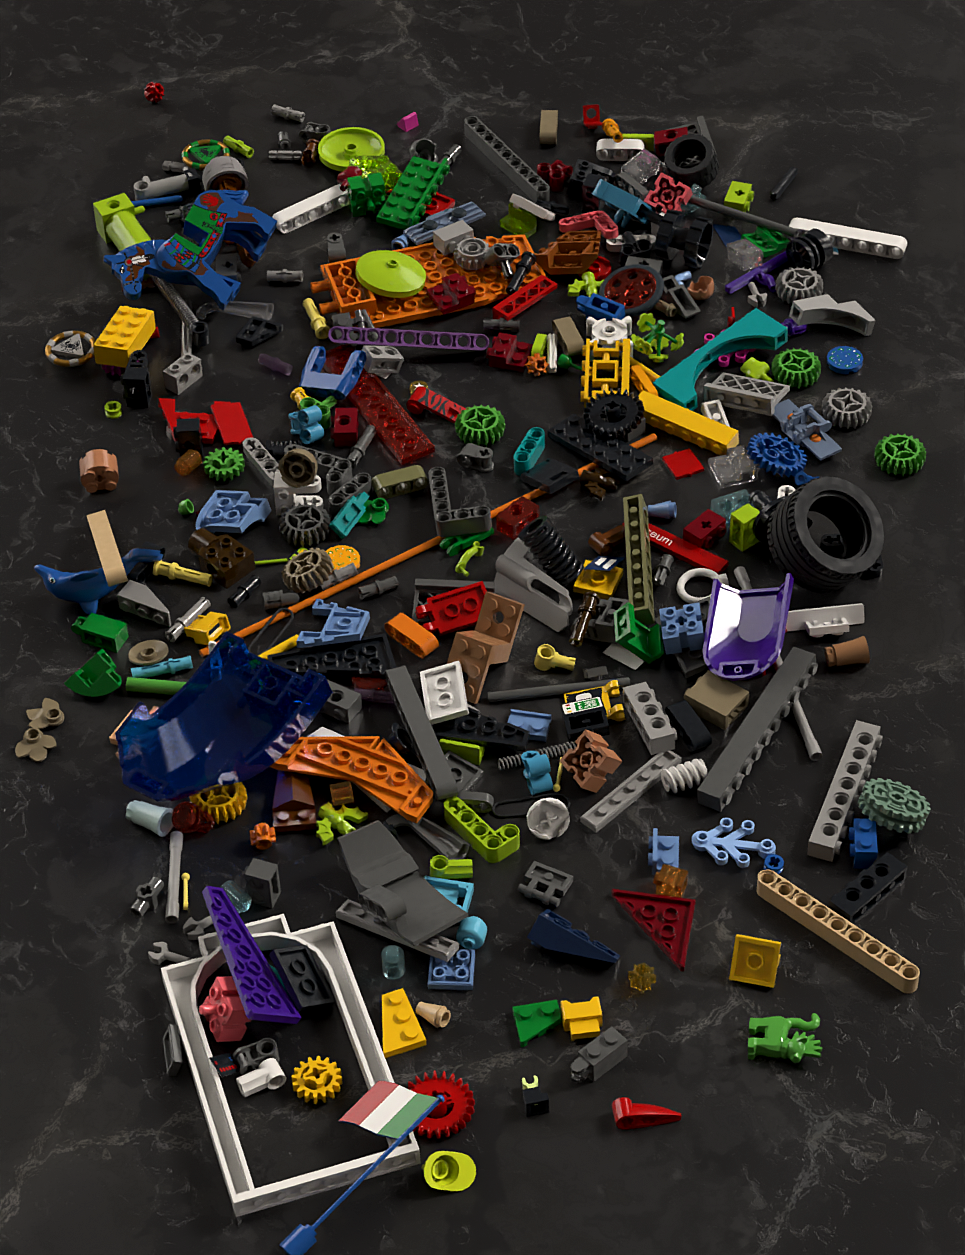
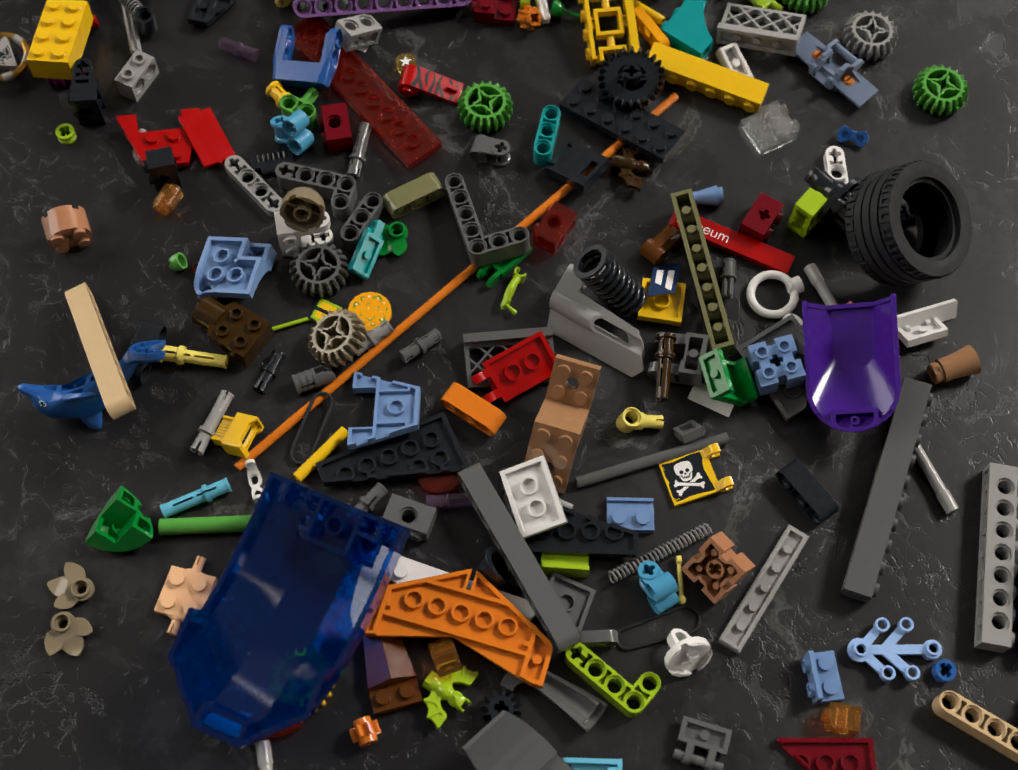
camera: 15 degrees left, 20 degrees up
(101, 631) = (114, 455): green brick -> none
(142, 602) = (157, 408): light grey slope -> none
(148, 652) = (172, 473): dark tan dish -> none
(224, 464) = (199, 192): bright green gear -> none
(450, 869) = (594, 741): lime piece -> none
(583, 715) = (695, 502): black slope -> none
(649, 718) = (778, 521): light grey brick -> none
(683, 464) = (713, 128): red piece -> none
(684, 775) = (821, 563): white piece -> none
(717, 699) = (829, 451): dark tan brick -> none
(729, 503) = (782, 182): clear light blue brick -> none
(776, 454) = (814, 113): blue gear -> none

